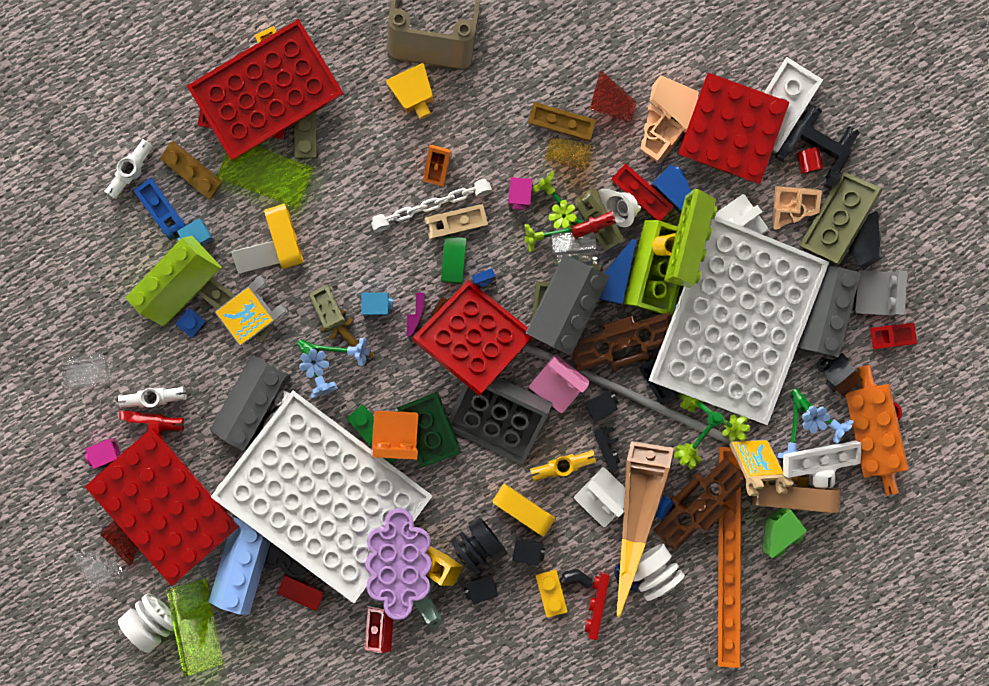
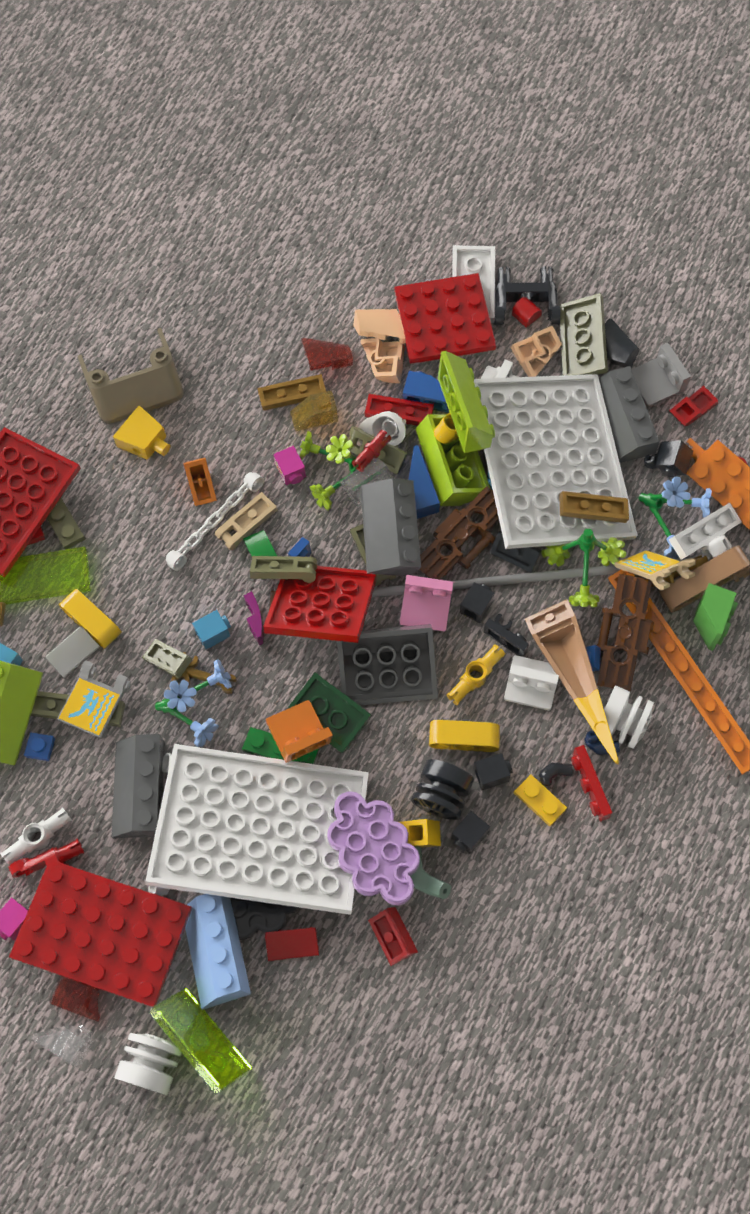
camera: 30 degrees left, 20 degrees down
(460, 287) = (283, 568): none -> olive plate
(744, 385) = (594, 507): none -> pearl gold plate

